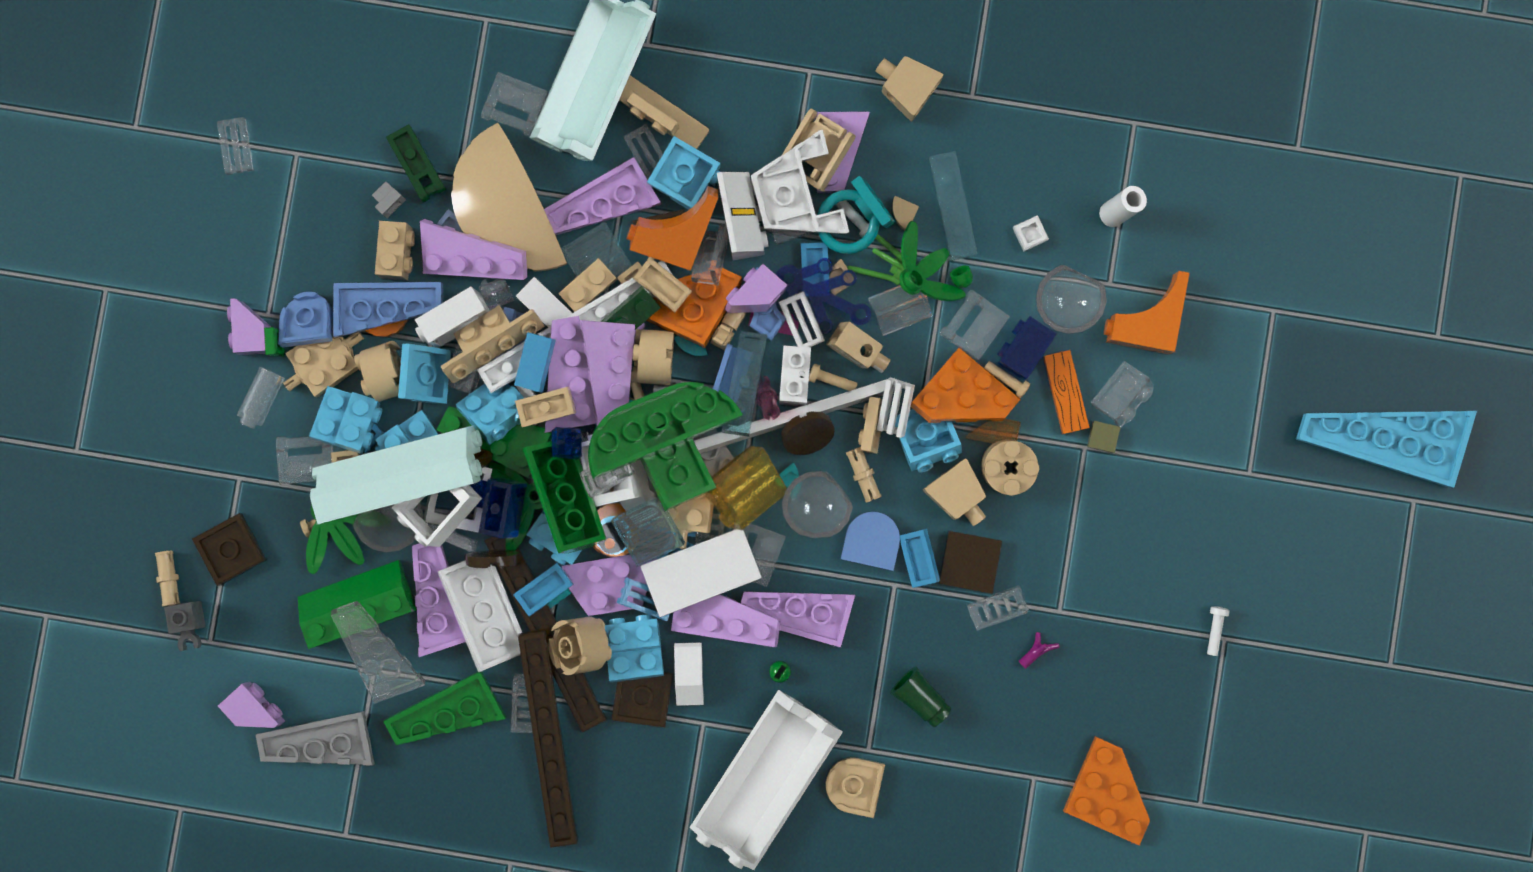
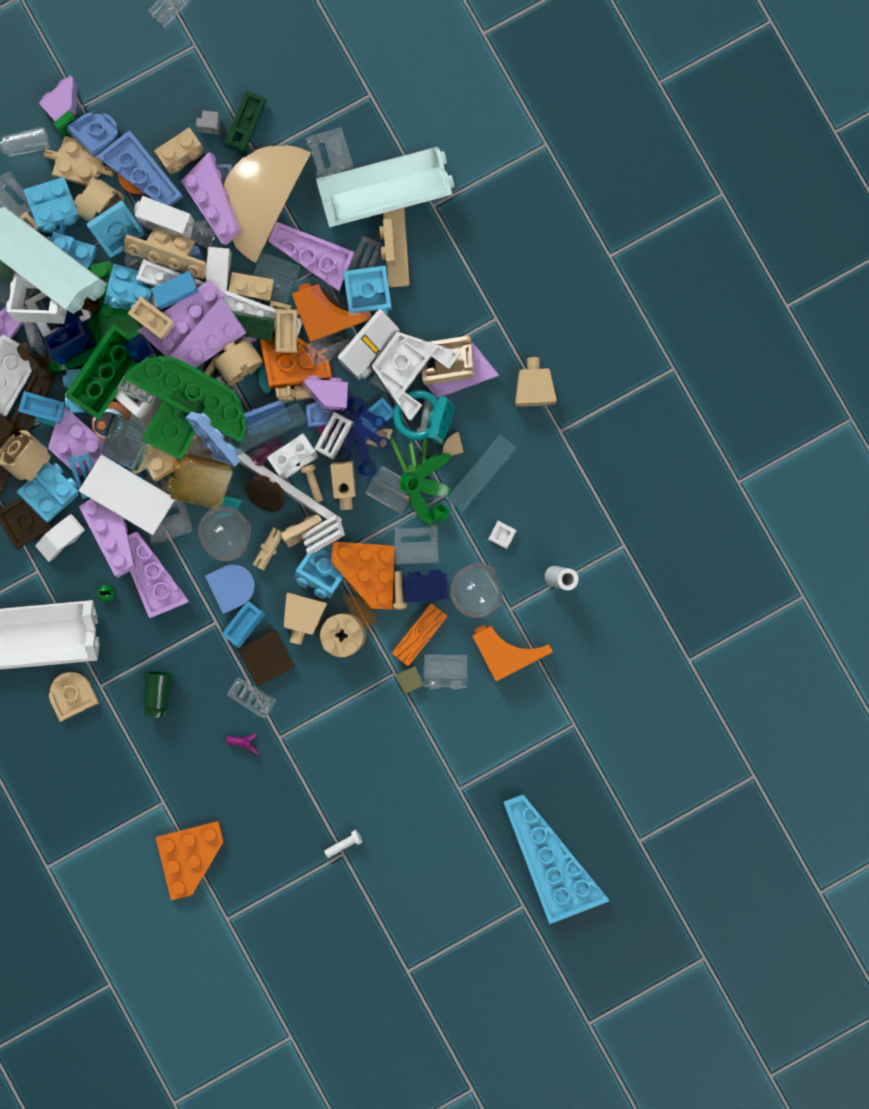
camera: 45 degrees right, 0 degrees up
(720, 439) = (213, 439): none -> light blue wing

